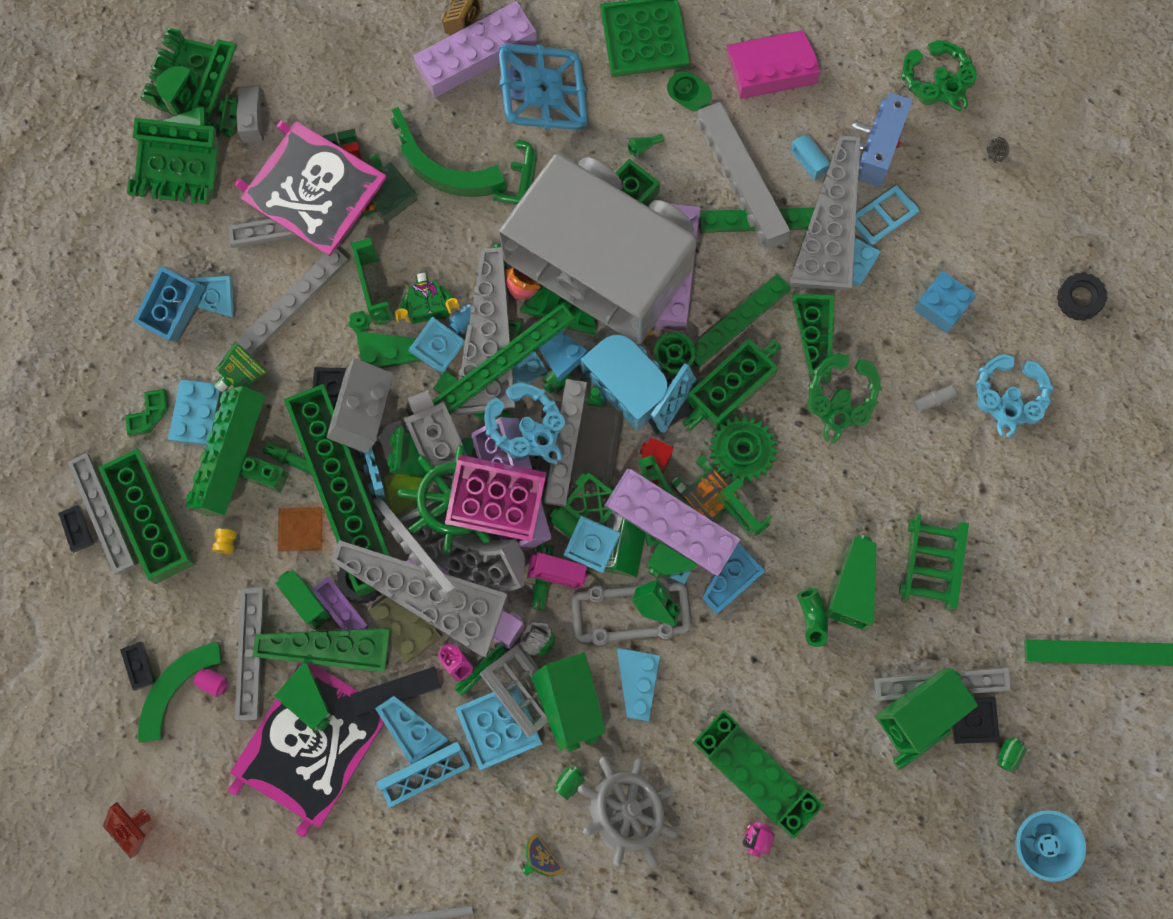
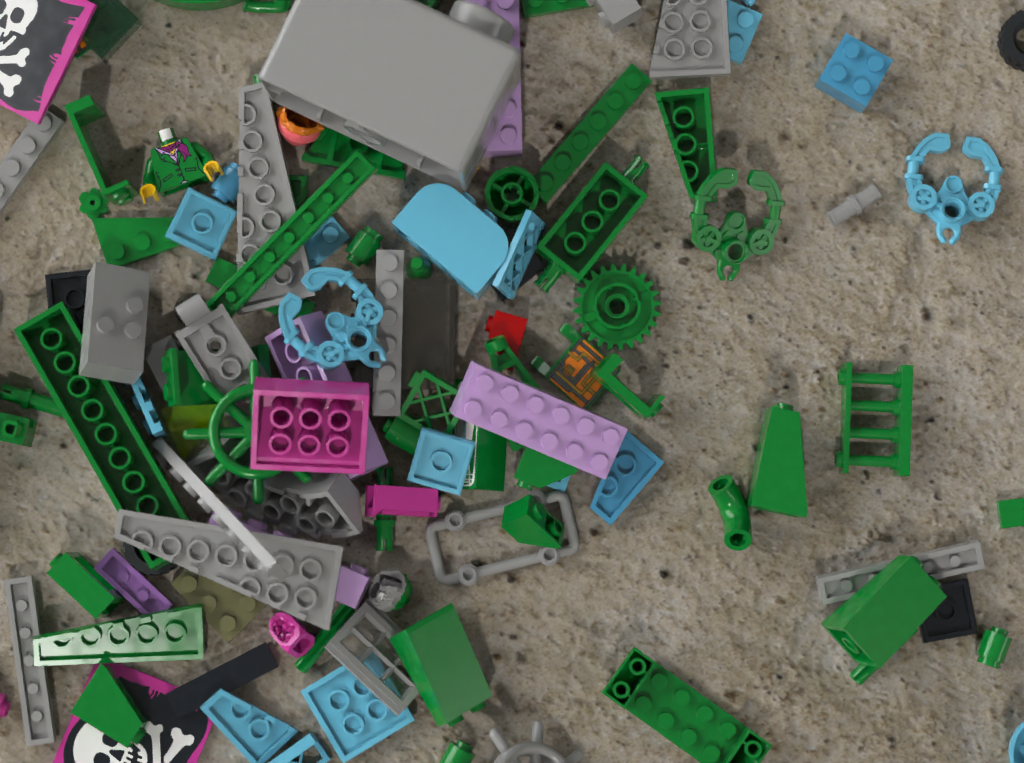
camera: 10 degrees left, 10 degrees up
(300, 529) = (65, 491): clear orange tile -> none
(562, 354) = (368, 215): dark azure wing -> none
(638, 682) = (523, 622): medium azure wing -> none

